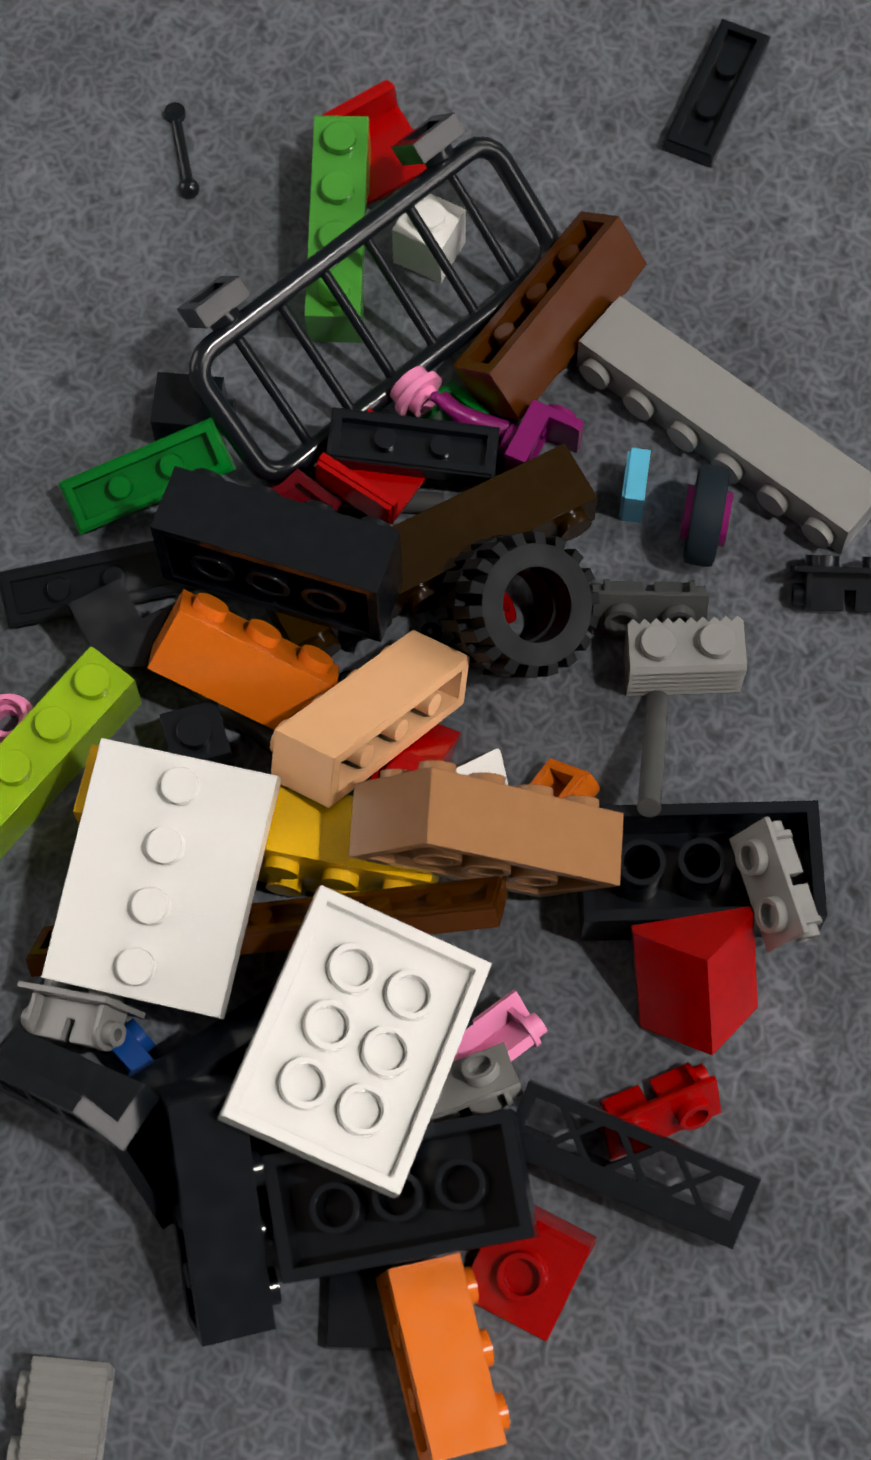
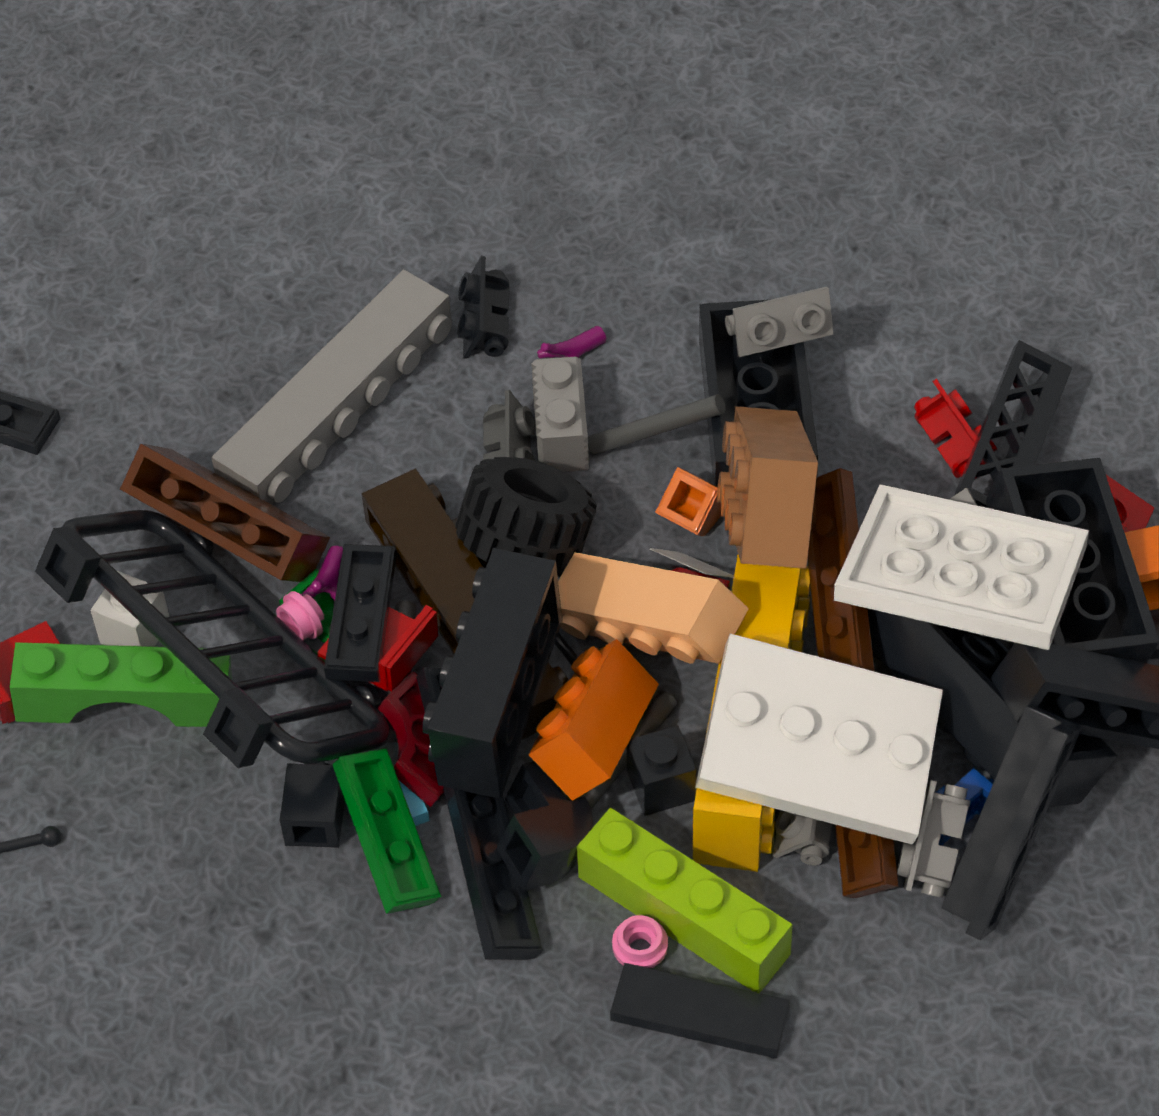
camera: 90 degrees left, 15 degrees down
(539, 425) = (343, 526): magenta bracket -> none
(634, 485) = (393, 453): medium azure tile -> none
(696, 976) = (855, 392): red slope -> none
(706, 515) = (430, 394): black wheel -> none
(794, 678) = (575, 346): none -> magenta bar

